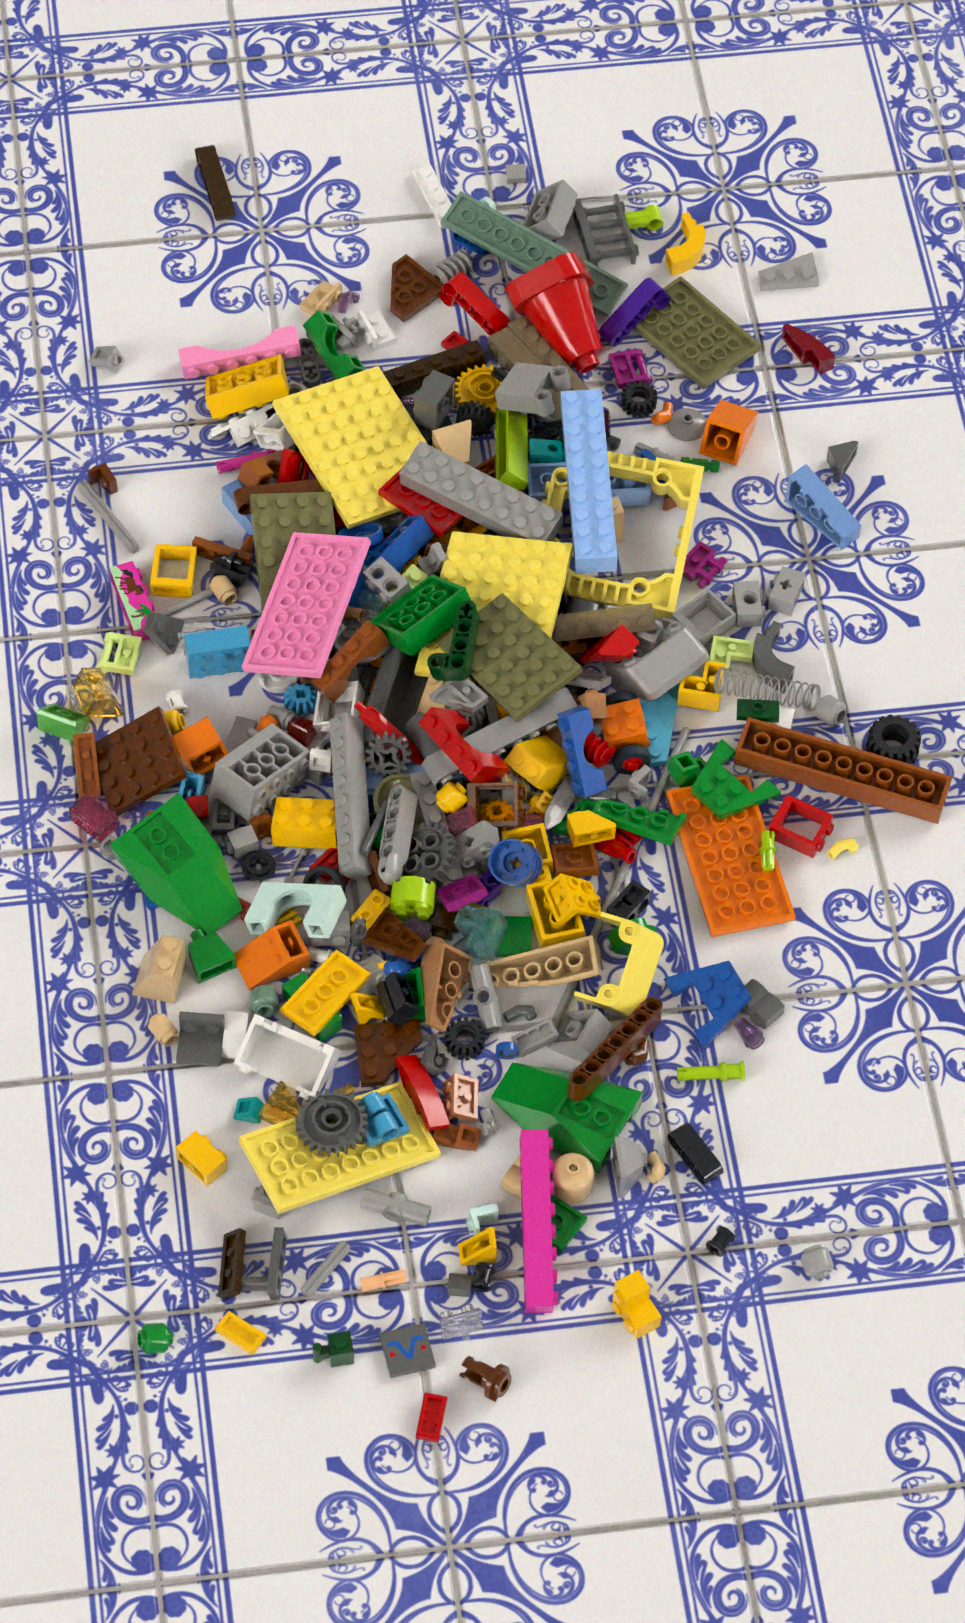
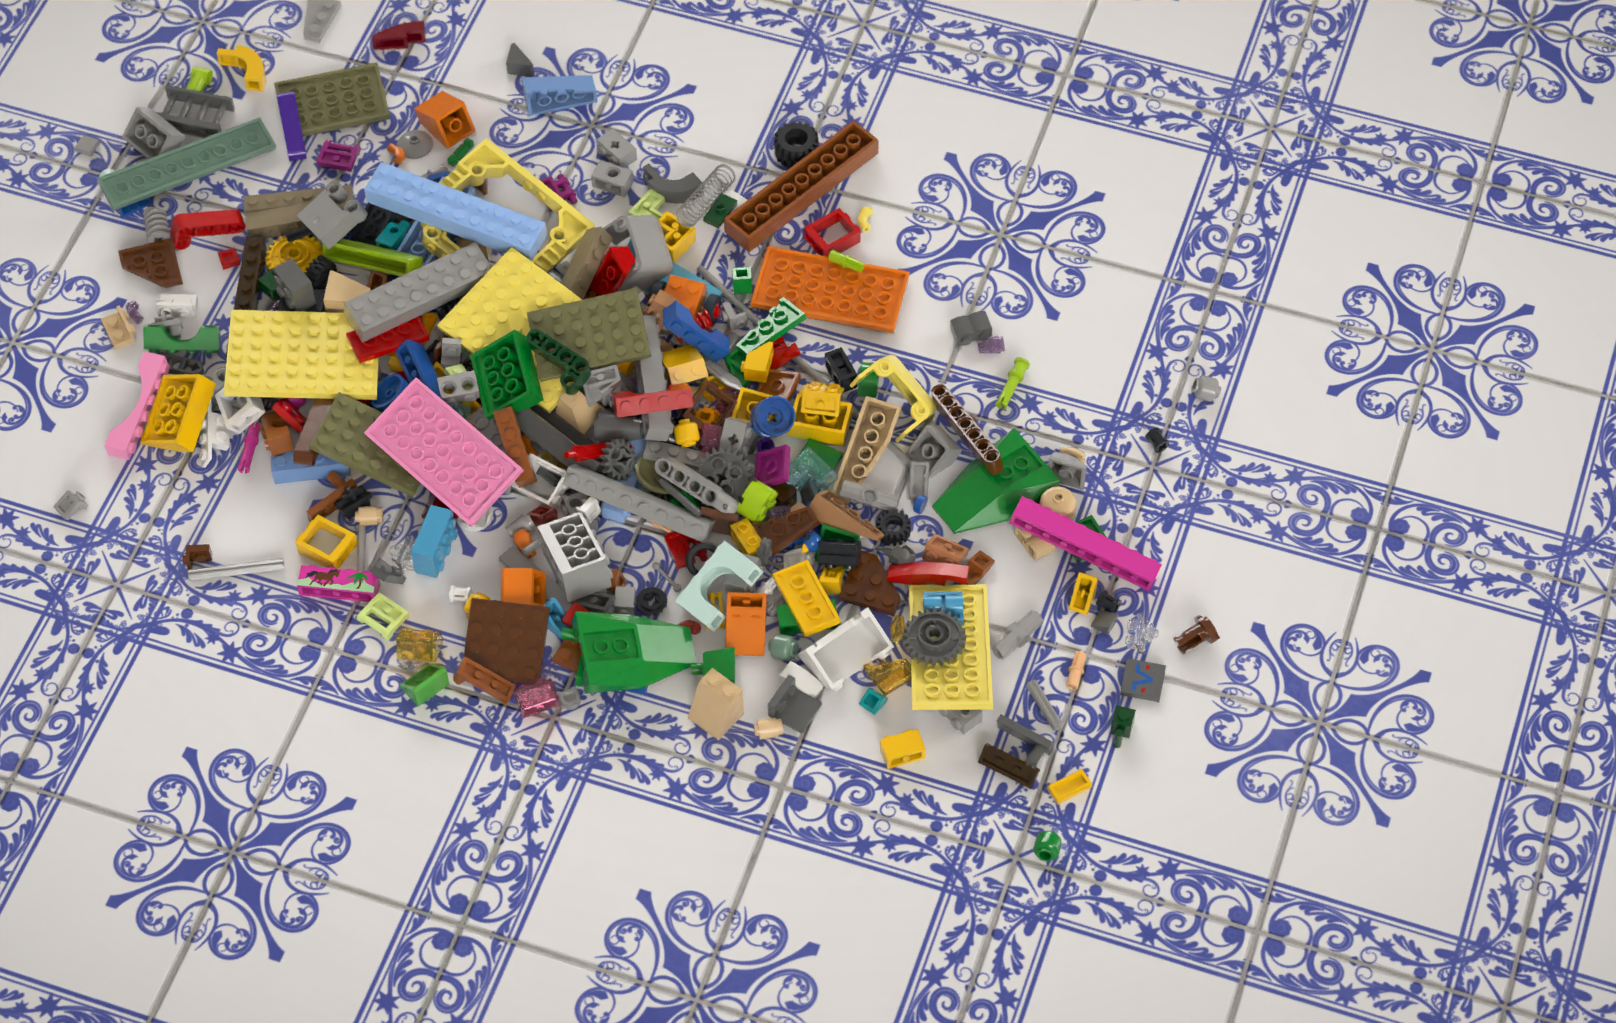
camera: 60 degrees left, 0 degrees up
(300, 699) = (512, 505): dark azure gear -> none
(304, 823) = (637, 548): yellow brick -> none
(431, 1417) = (1209, 687): red plate -> none
(432, 191) = (69, 208): white plate -> none
(482, 1215) = (1058, 588): light aqua bracket -> none
(489, 1125) = (977, 543): light grey arm -> none
(520, 1010) = (892, 476): dark grey arm -> none
(561, 308) = (263, 165): red cone -> none
(634, 1305) = (1185, 514): yellow brick -> none
(642, 390) = (367, 155): black tyre -> none
(695, 1153) = (1075, 423): black beam -> none
(717, 606) = (600, 198): light grey window -> none
(720, 991) = (954, 344): blue wing -> none
(724, 792) = (774, 266): green wing -> none
(831, 710) = (743, 170): light grey head -> none

